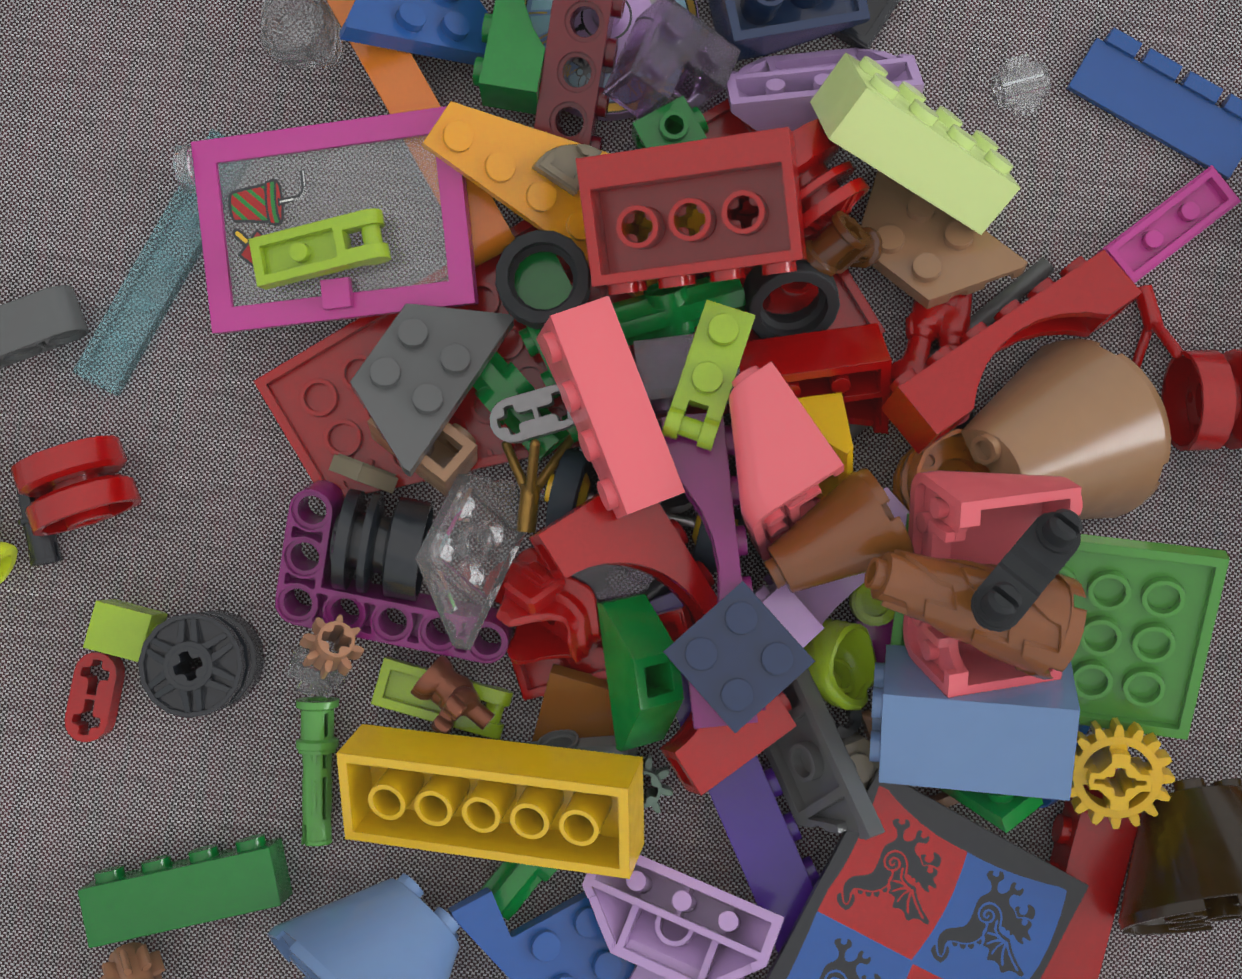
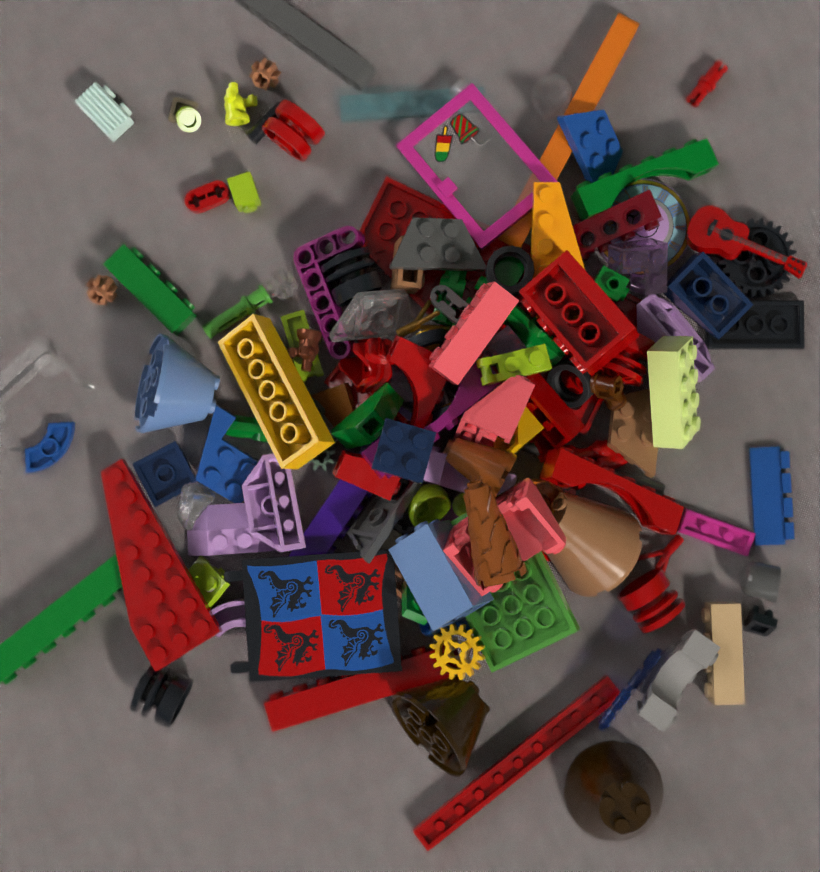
camera: 55 degrees right, 0 degrees up
(229, 656) = (250, 246): black wheel -> none
(318, 249) = (461, 167): lime plate -> none
(344, 645) = (293, 289): nougat gear -> none
(363, 472) = (377, 249): dark tan tile -> none
(560, 165) = (562, 244): dark tan tile -> none
(1021, 85) = (734, 425): clear gear -> none
(1026, 570) = (516, 542): black piece -> none

